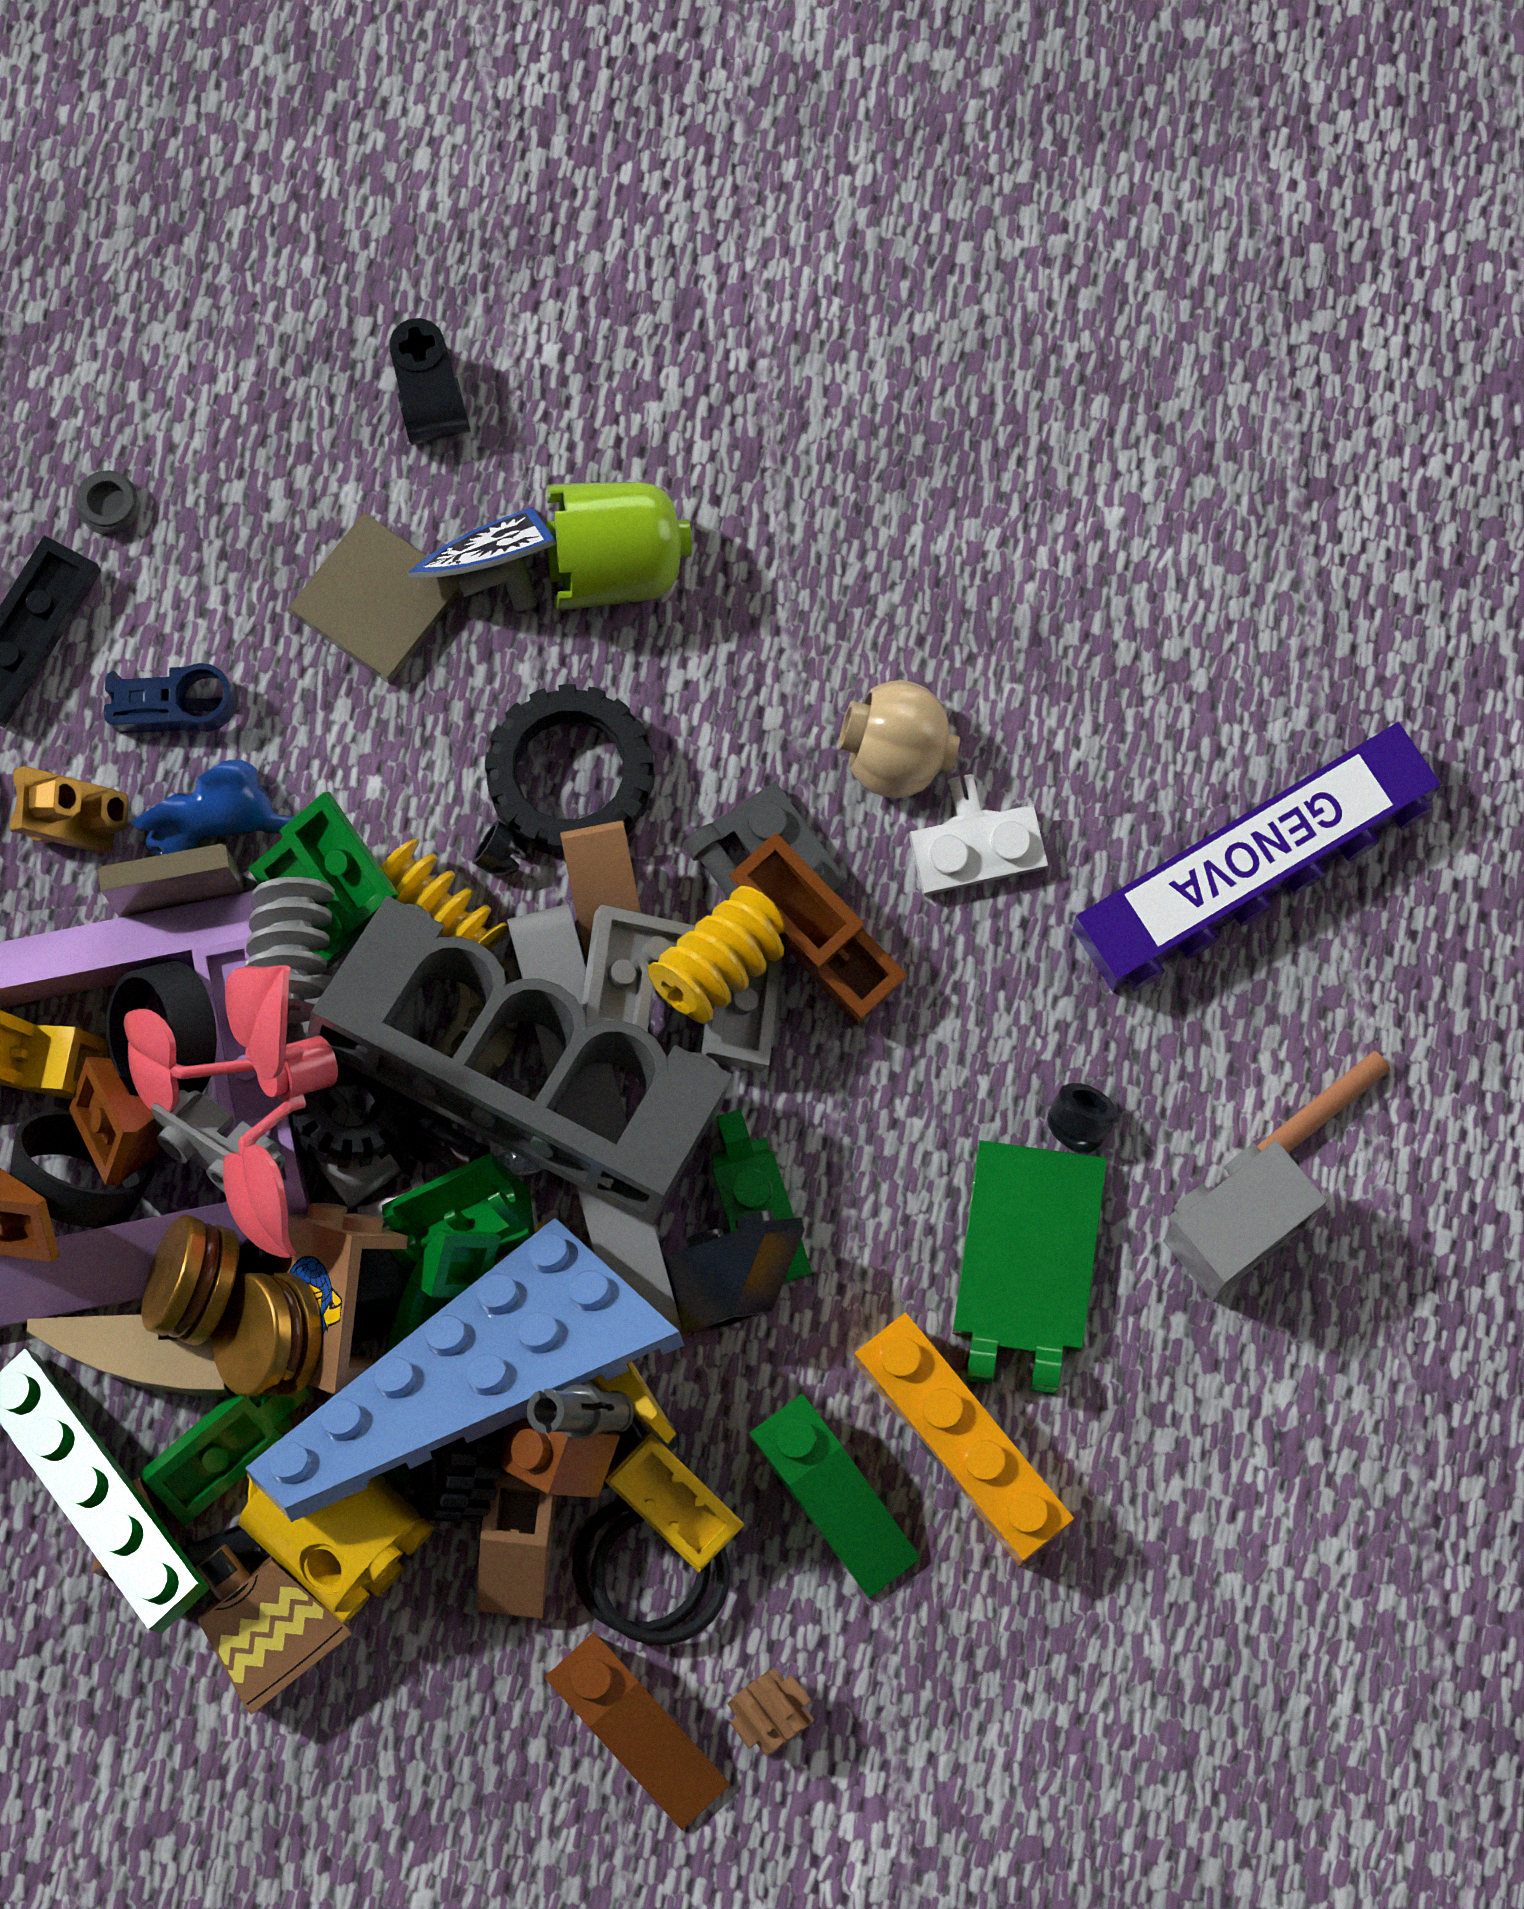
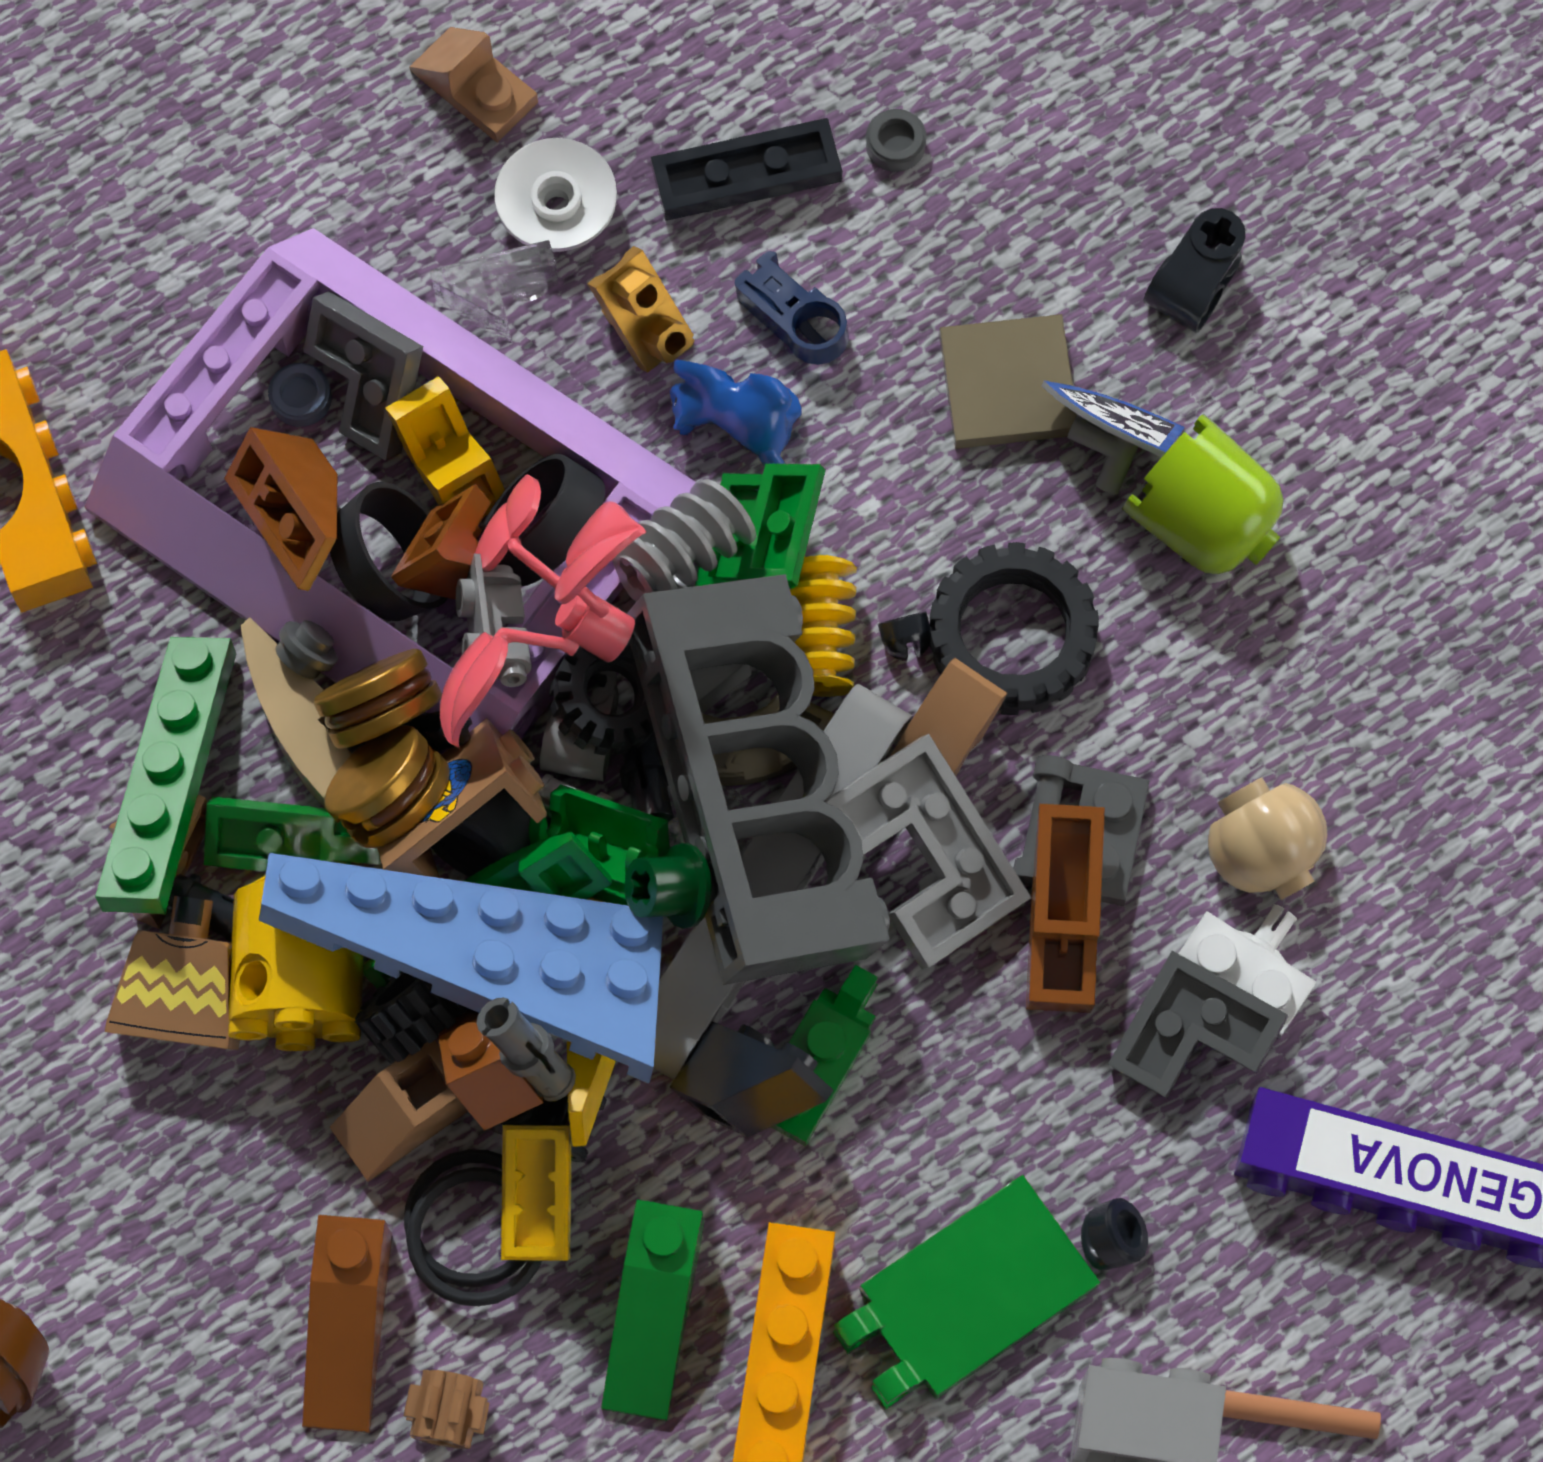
camera: 45 degrees right, 5 degrees down
(95, 1298) = (306, 648): none -> dark grey plate
(170, 880) = (657, 423): dark tan tile -> none
(546, 1194) = (670, 886): none -> dark green piece
(719, 954) = (972, 849): yellow piece -> none
(968, 915) = (1190, 1008): none -> dark grey plate

